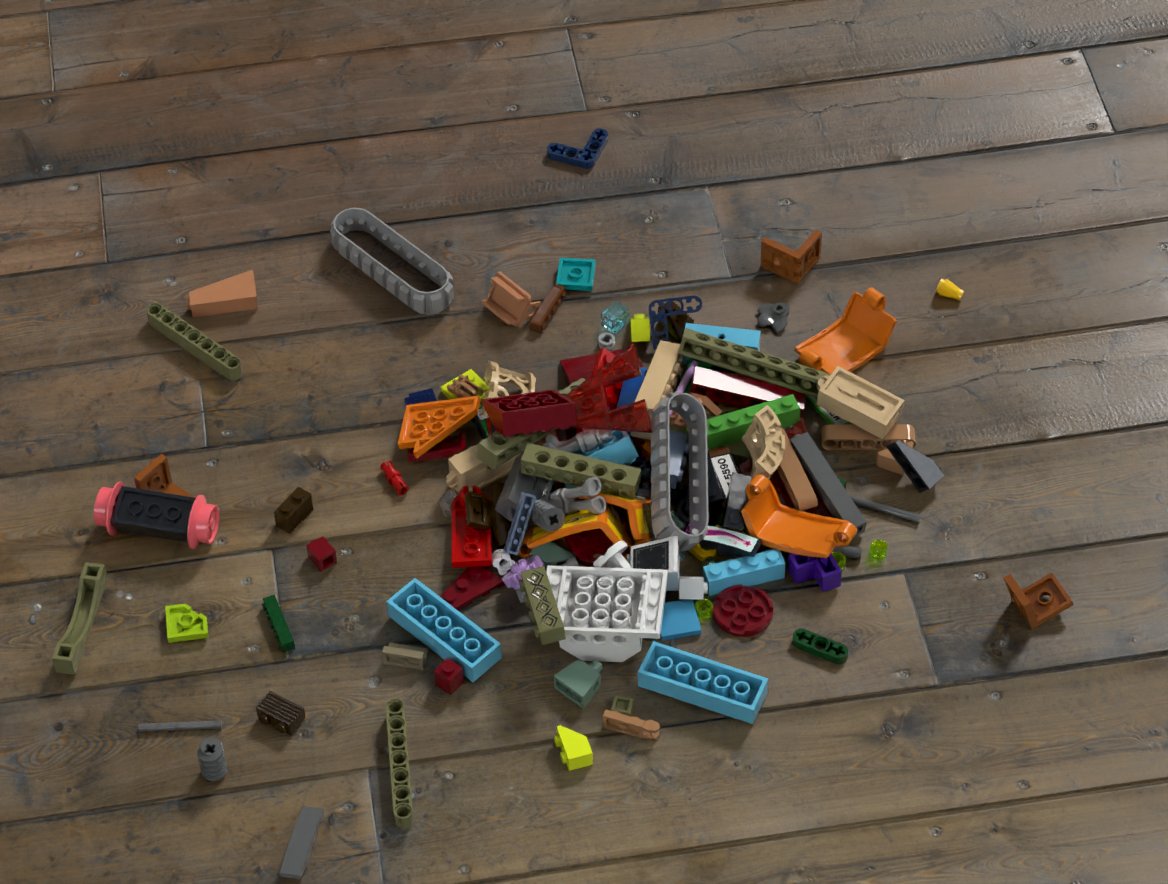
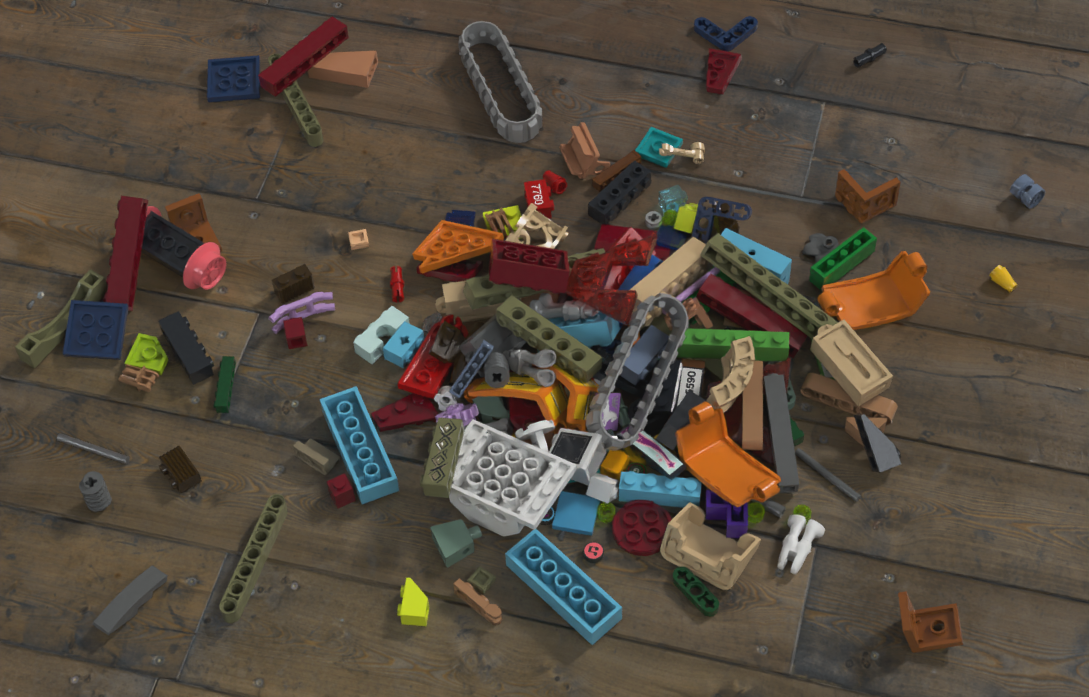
camera: 25 degrees right, 5 degrees up
(118, 341) = (233, 78): none -> dark blue plate
(119, 533) = (126, 251): none -> dark red brick
(121, 617) = (95, 330): none -> dark blue plate
(184, 296) = (303, 56): none -> dark red brick
(189, 646) = (138, 377): none -> medium nougat arm
(222, 602) = (186, 348): none -> black brick
(324, 526) = (311, 309): none -> lavender piece
(332, 450) = (358, 239): none -> light nougat tile
(409, 514) = (369, 344): none -> light aqua arch
(434, 528) = (403, 344): none -> medium azure brick
(486, 350) = (538, 194): none -> red brick
(495, 336) = (557, 183): none -> red cone
(562, 327) = (619, 193): none -> black brick
(595, 185) = (721, 70): none -> dark red wing
(613, 266) = (696, 151): none -> tan brick
(622, 333) = (669, 217): none -> clear neon green axle
(641, 346) = (670, 237): none -> clear blue window
(691, 563) = (615, 463): none -> light orange brick
(711, 646) = (593, 552): none -> tile
(727, 130) = (869, 55): none -> black pin
(800, 318) = (843, 258): none -> green brick
(812, 609) = (705, 550): none -> tan windscreen
(889, 580) = (798, 551): none -> white piece
(932, 207) = (1027, 191): none -> sand blue wheel

